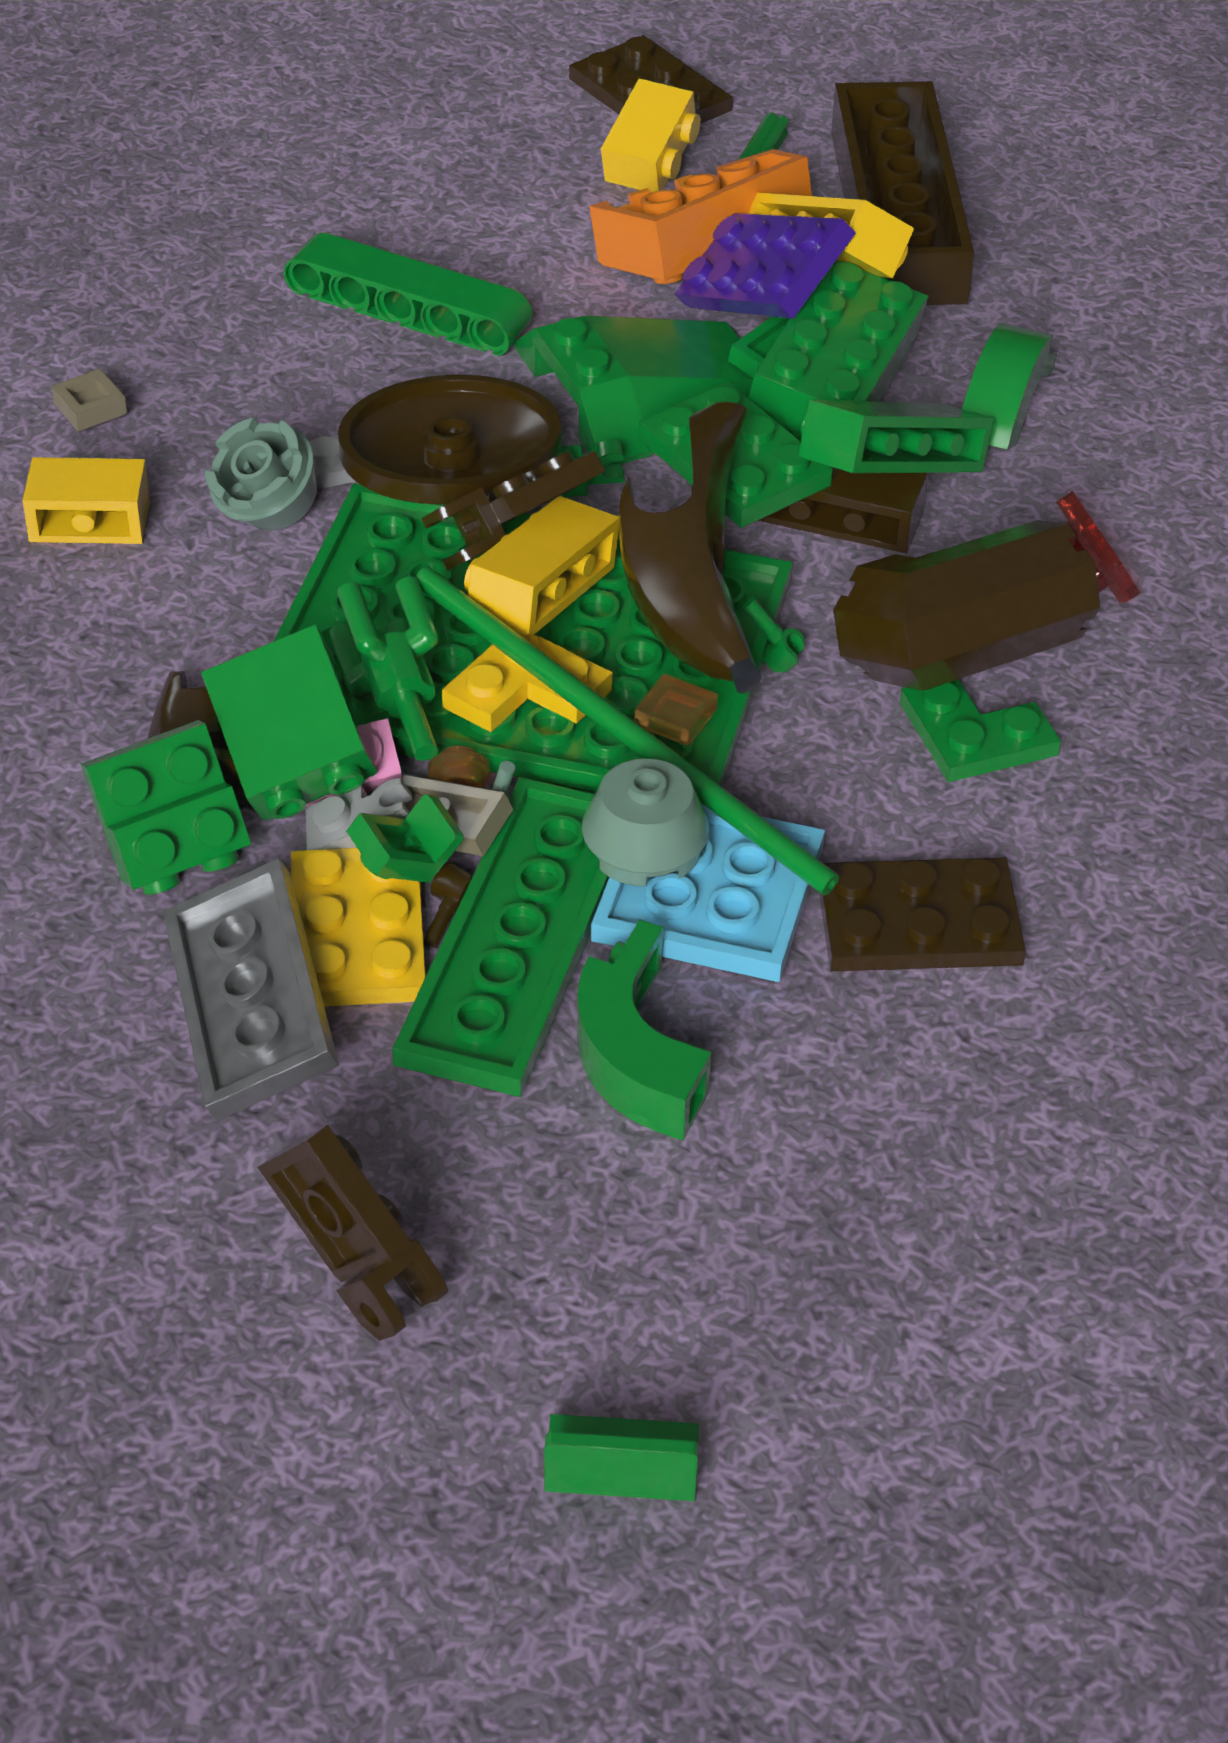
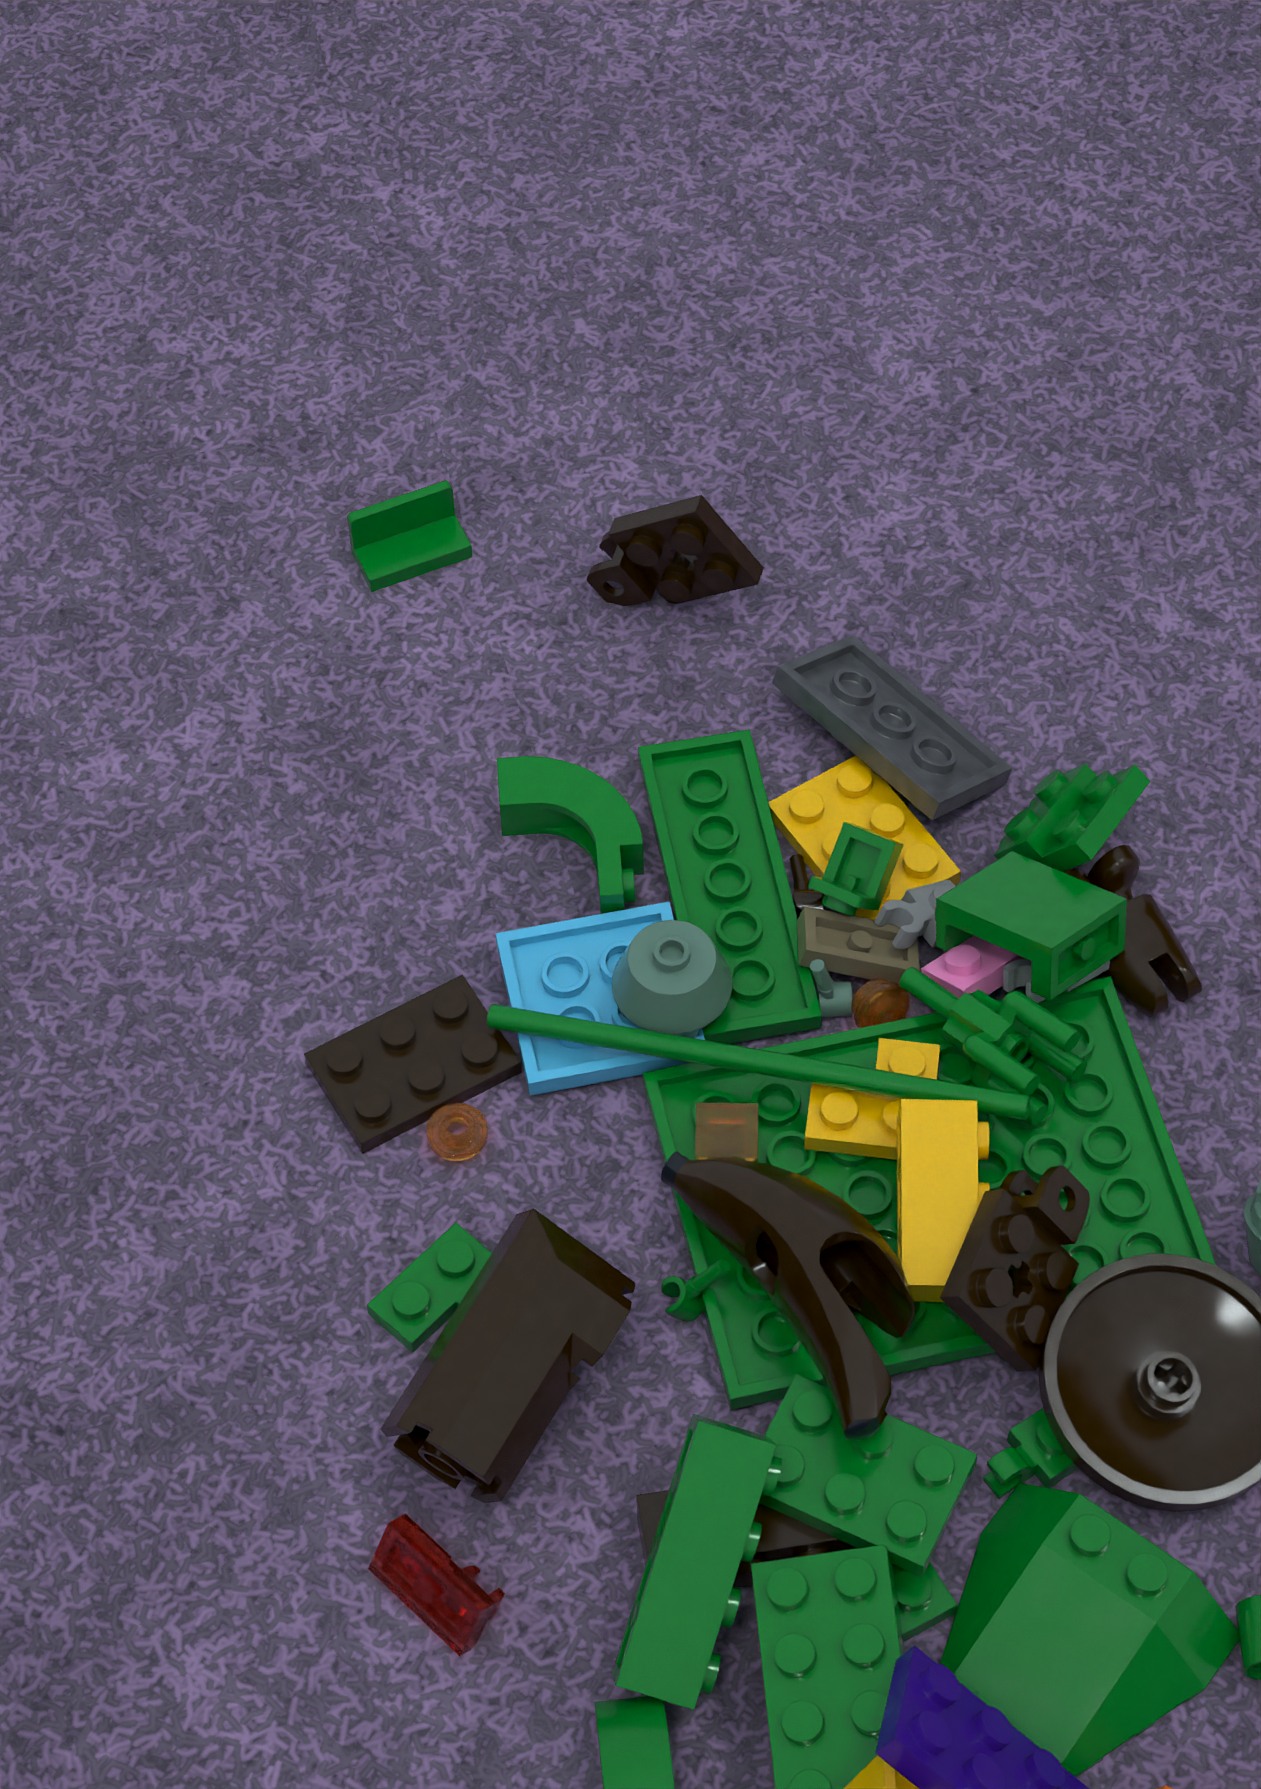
camera: 155 degrees right, 10 degrees up
(909, 837) = (457, 1146): none -> clear orange plate

